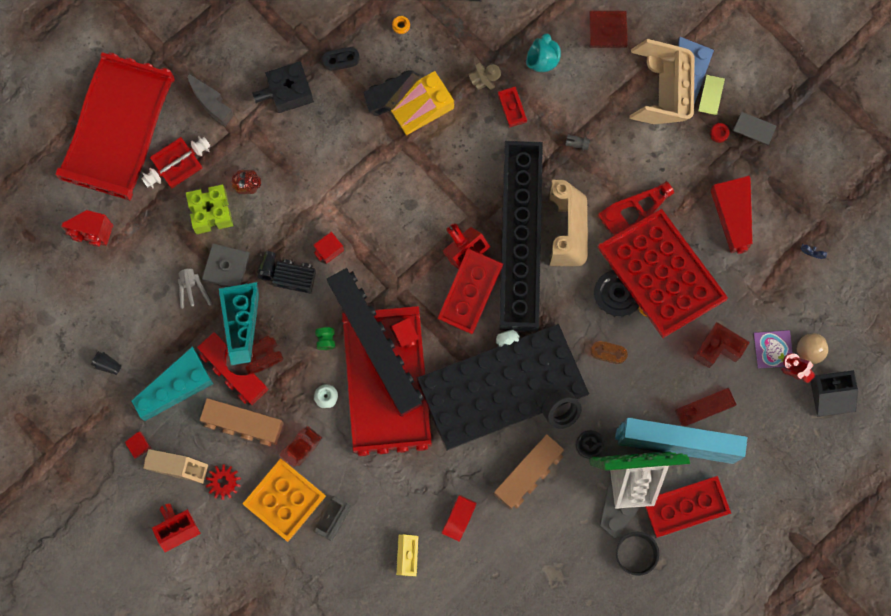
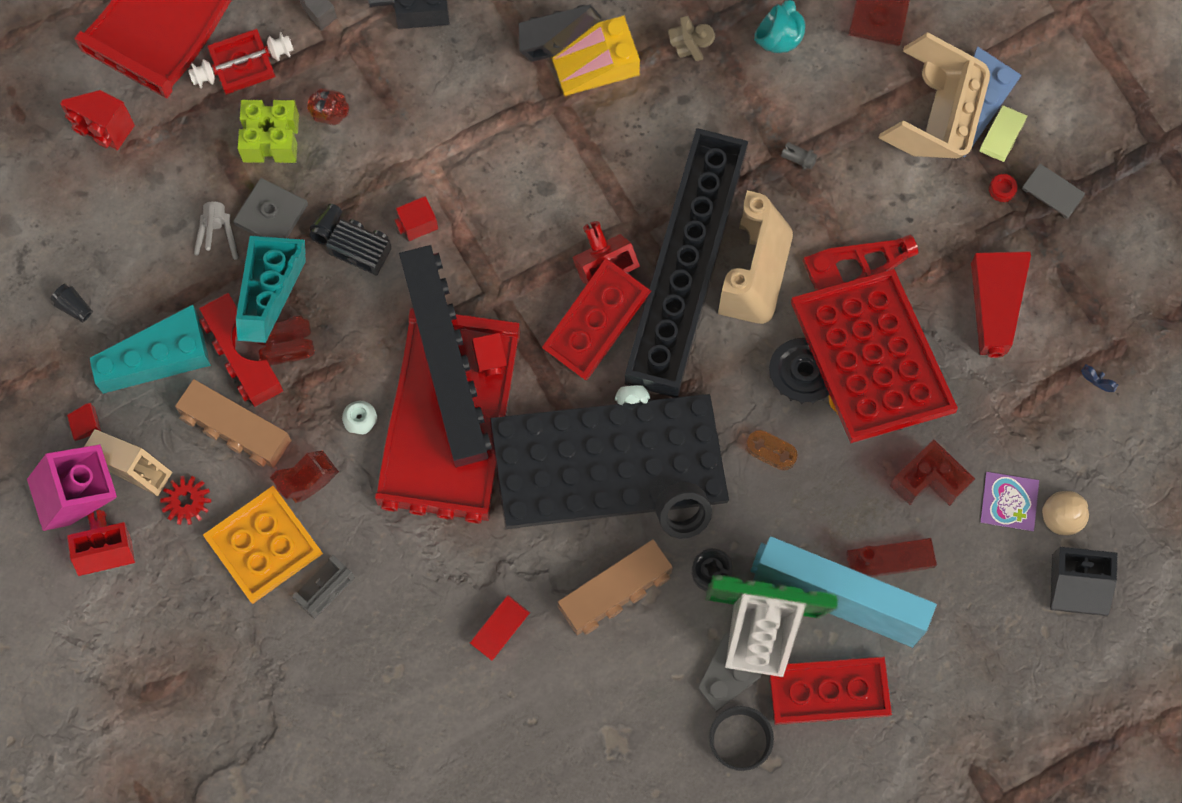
camera: 15 degrees right, 5 degrees down
(144, 493) = (70, 486): none -> dark pink slope
(325, 338) = (379, 338): green wheel -> none
(407, 555) = (413, 662): light yellow plate -> none
(512, 107) = (719, 89): red plate -> none
(798, 367) = (1036, 531): red hips -> none

